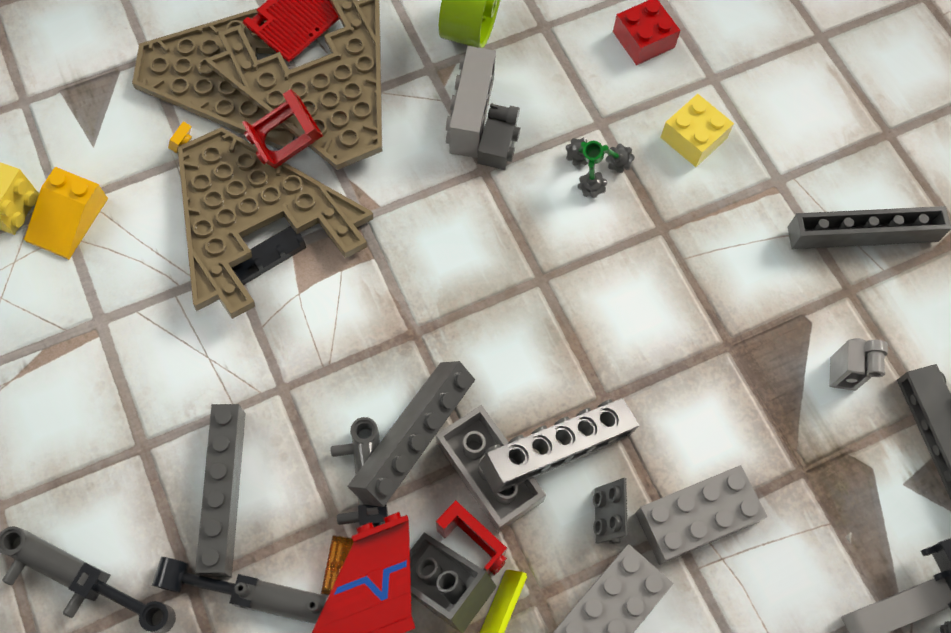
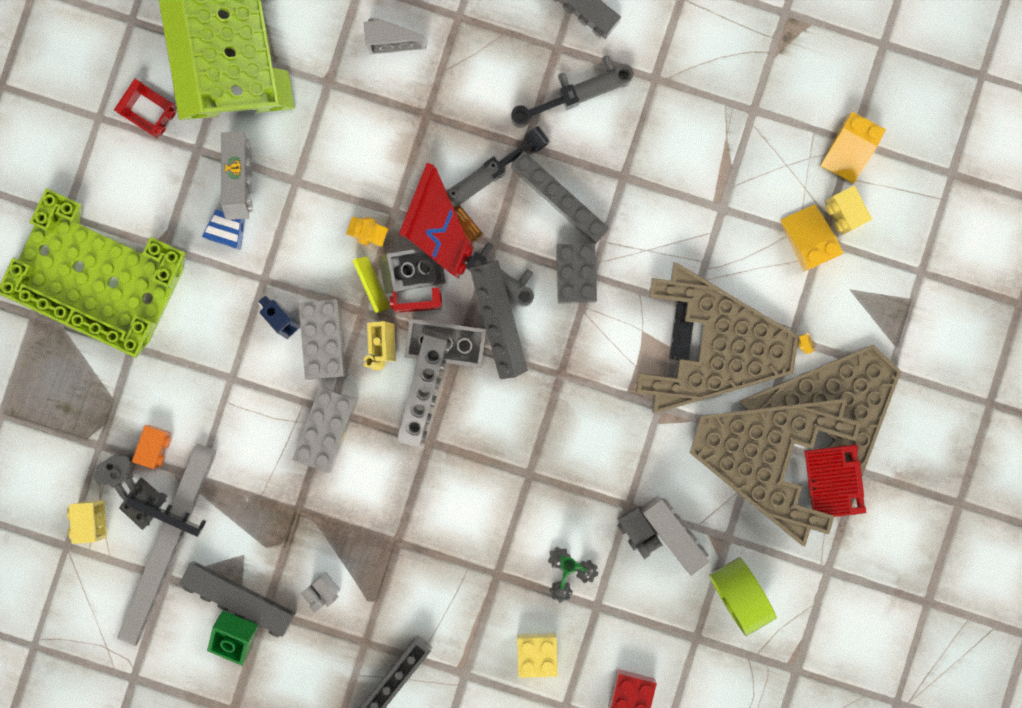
camera: 135 degrees right, 20 degrees up
(258, 131) = (743, 420): red panel -> none
(293, 401) = (576, 273): none -> dark grey brick
(556, 537) = (380, 344): none -> light yellow hinge
(611, 512) = (368, 384): dark grey hinge -> none

